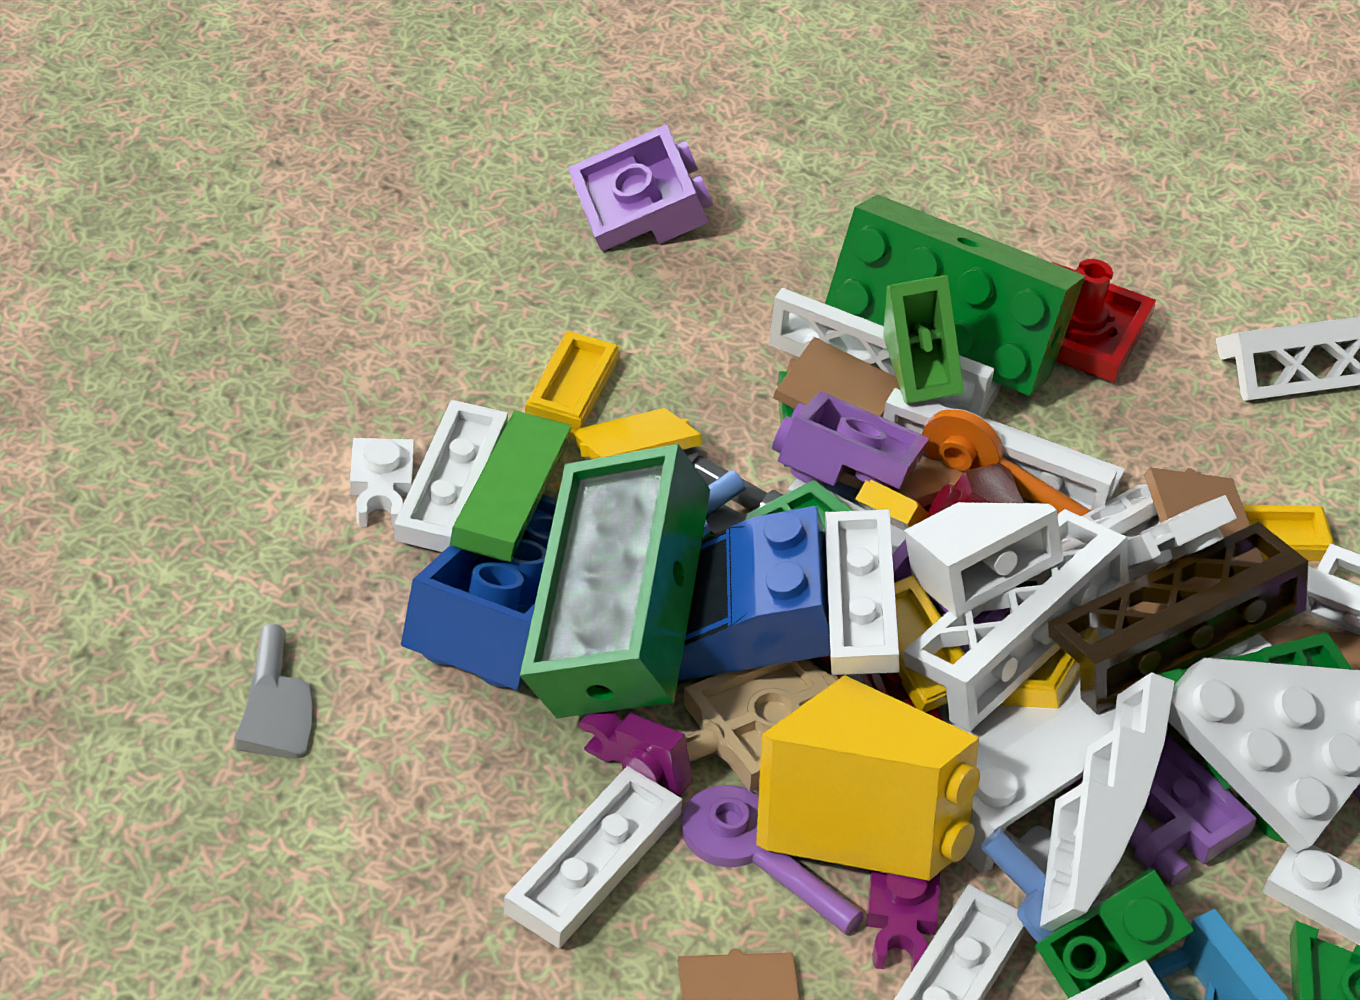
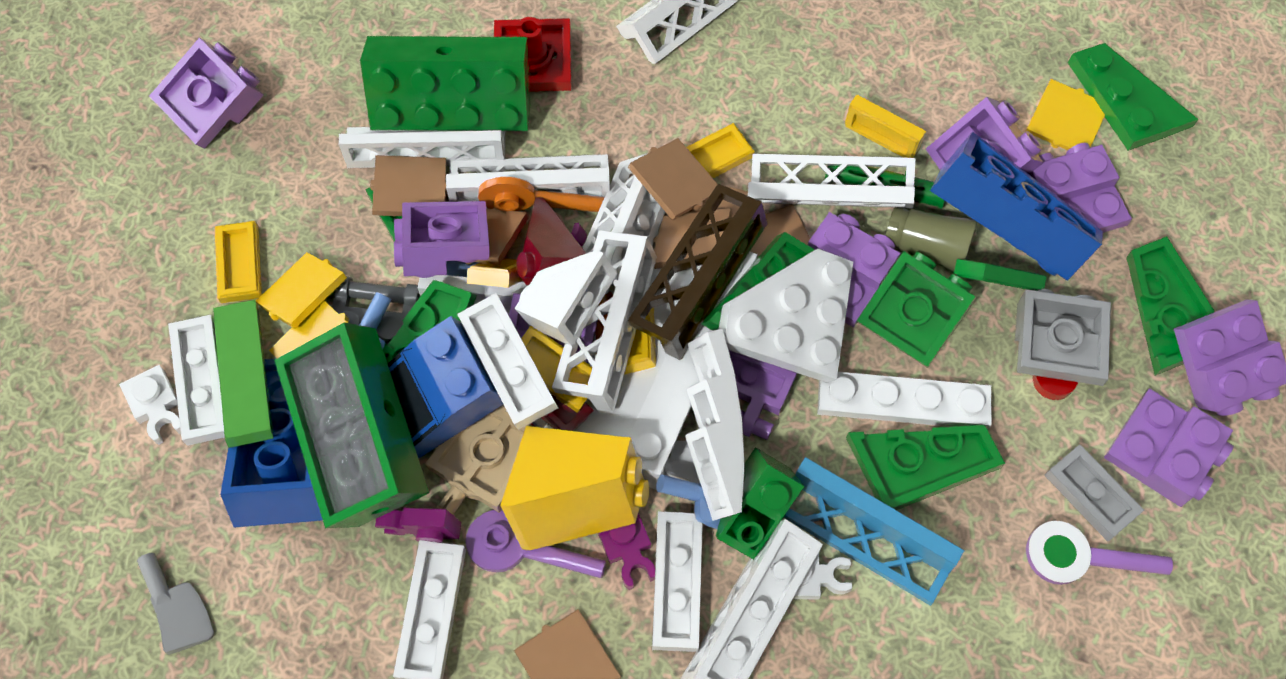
camera: 25 degrees left, 20 degrees up
(922, 339) = (451, 139): bright green slope -> none
(1182, 533) = (675, 211): white plate -> none

